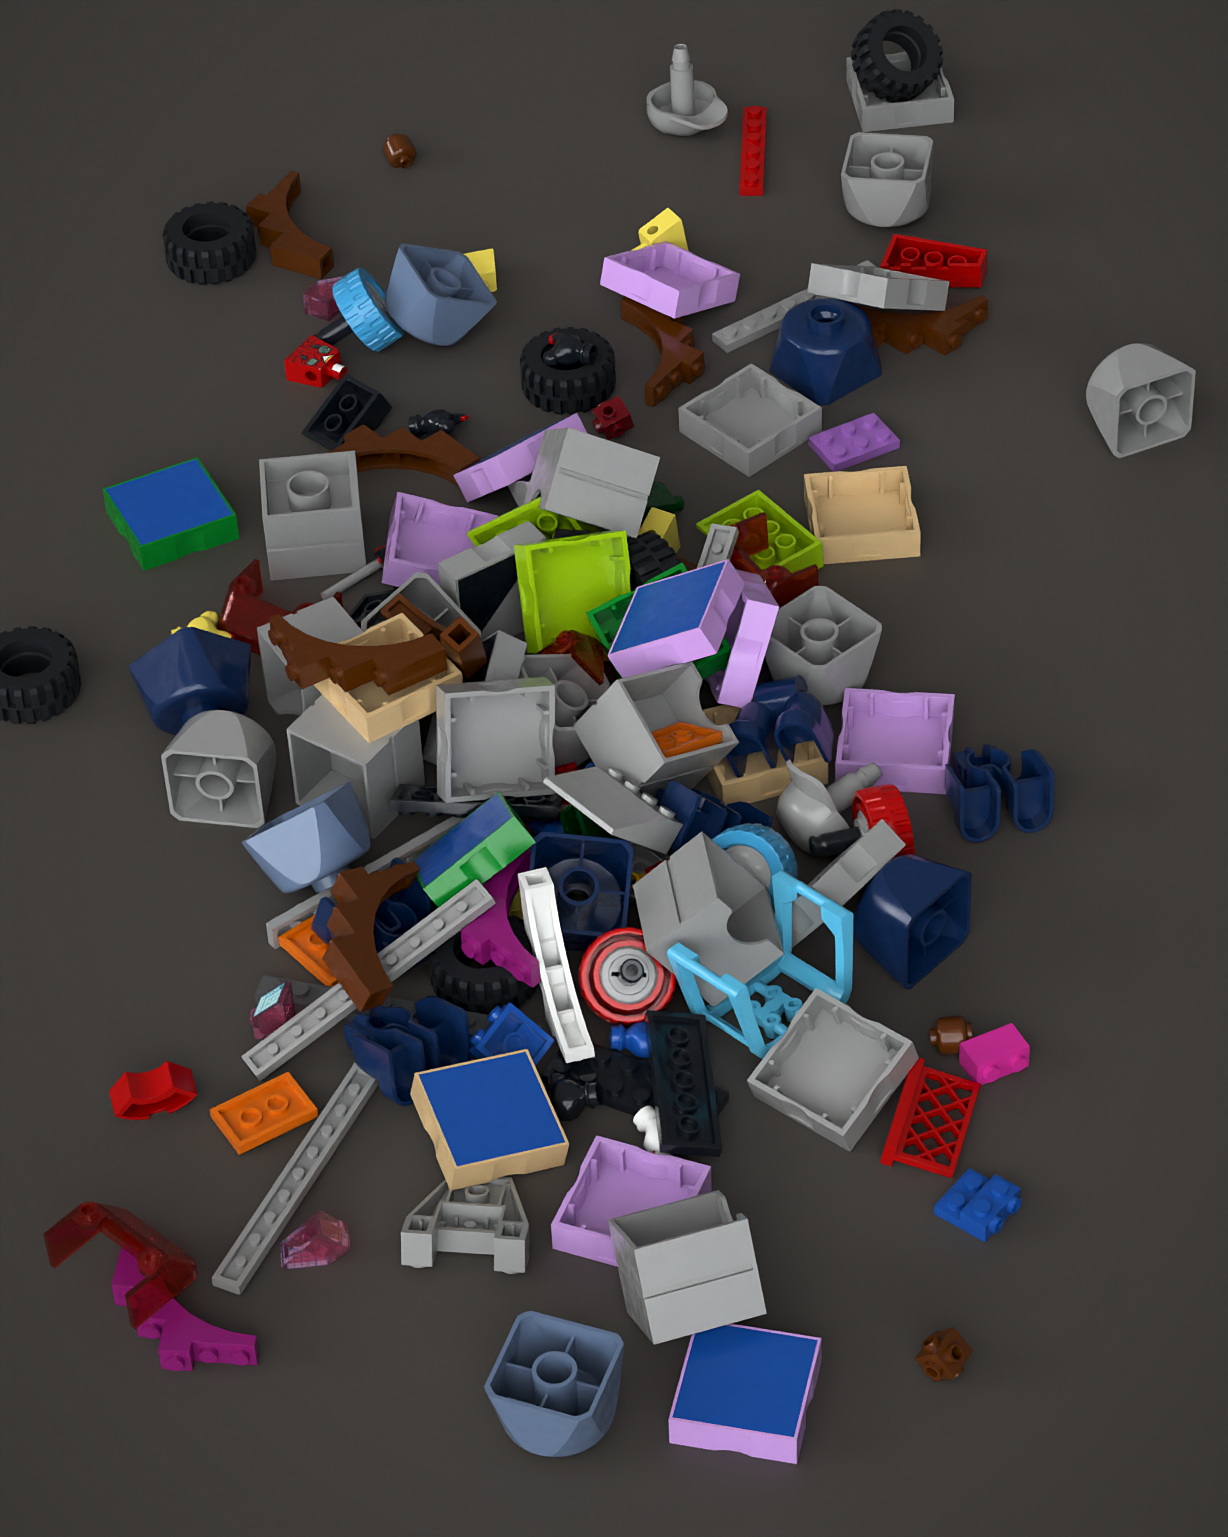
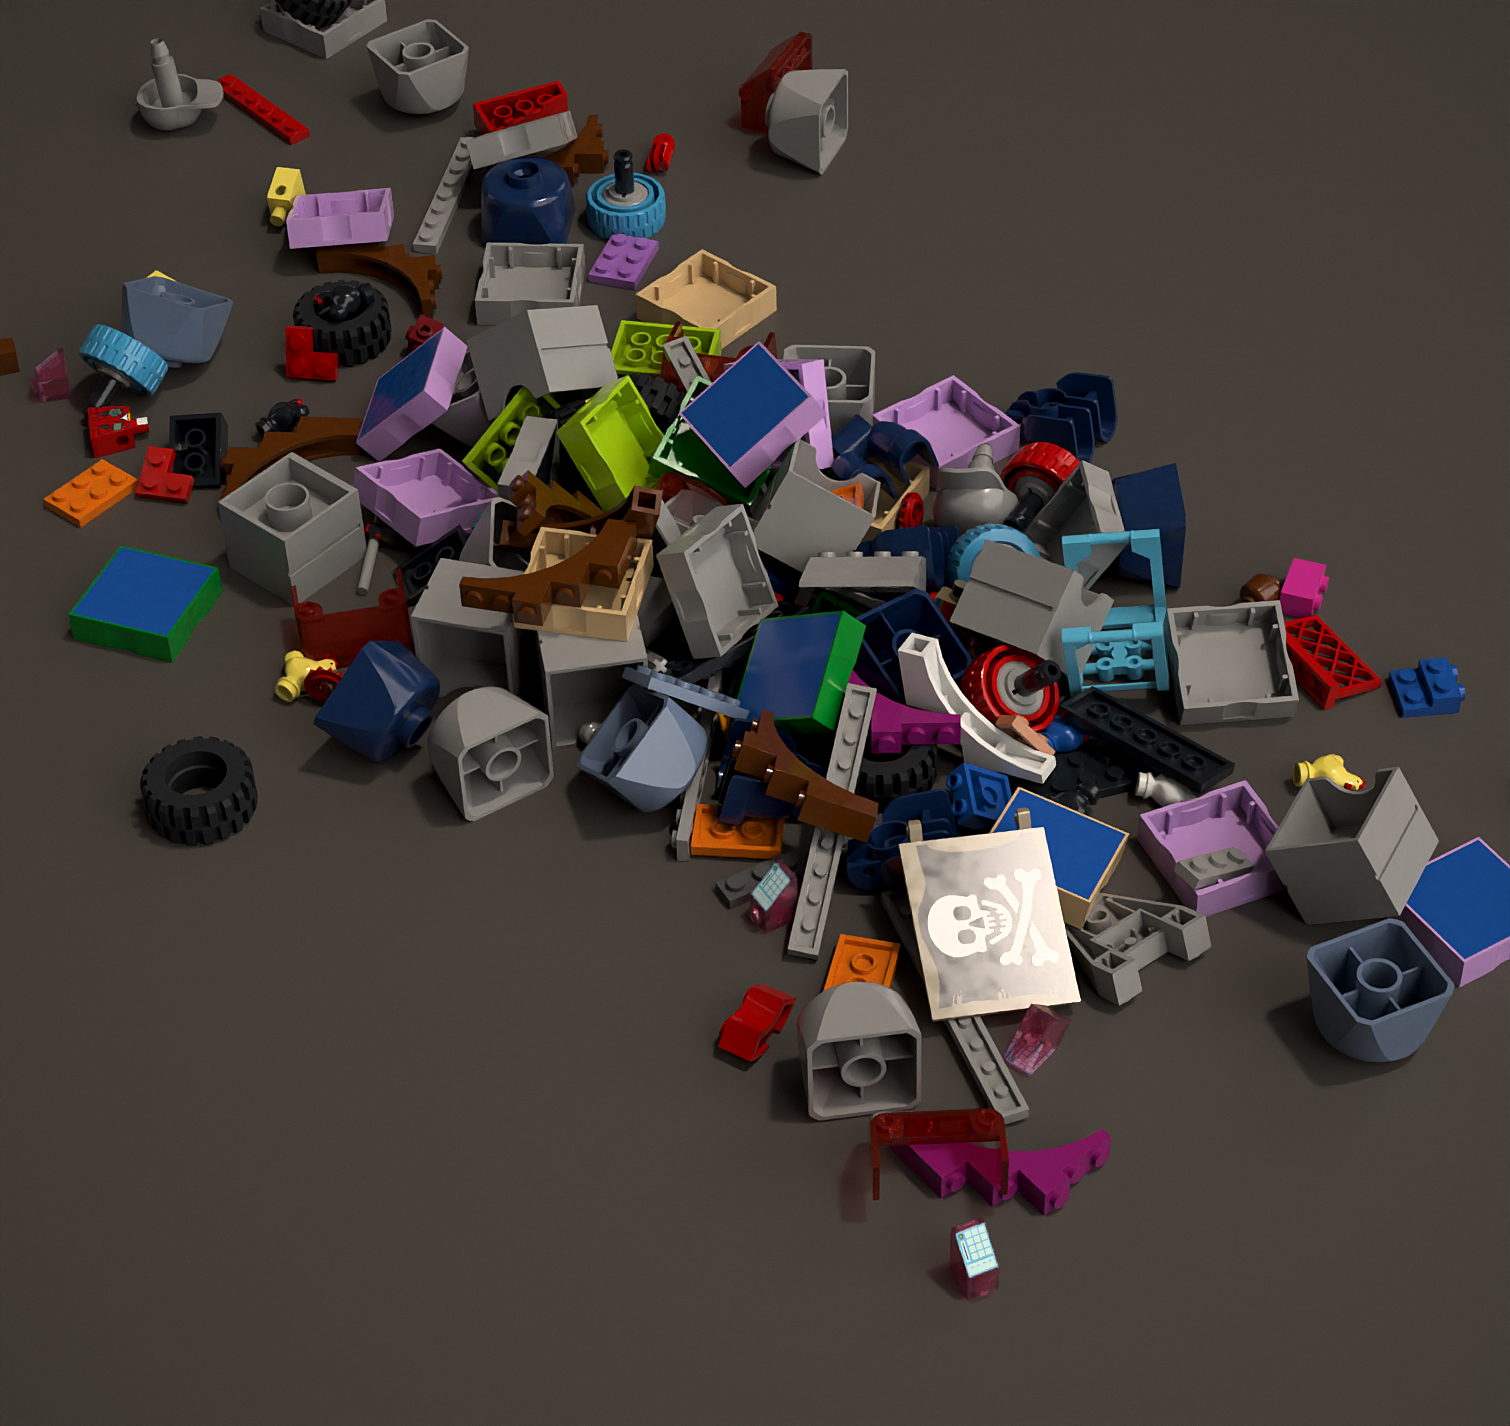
camera: 45 degrees left, 0 degrees up
(58, 1354) = (973, 1259): none -> slope
(161, 1155) = (859, 1052): none -> light grey piece
(247, 405) = (91, 493): none -> orange plate
(295, 421) = (158, 481): none -> red plate
(367, 1129) = (987, 921): none -> flag
(378, 813) = (685, 691): none -> sand blue plate
(405, 776) = (656, 662): none -> light grey axle
(436, 593) = (547, 503): none -> reddish brown arch
(505, 385) = (302, 361): none -> red plate
(584, 1209) = (1209, 867): none -> light grey plate
(587, 1006) = (1017, 728): none -> nougat plate
(760, 792) = (911, 510): none -> red gear
(797, 1210) = (1327, 766): none -> light yellow animal
(909, 391) = (625, 202): none -> dark azure wheel
(1003, 362) = (660, 153): none -> red arm
(1201, 328) = (755, 92): none -> clear red windscreen

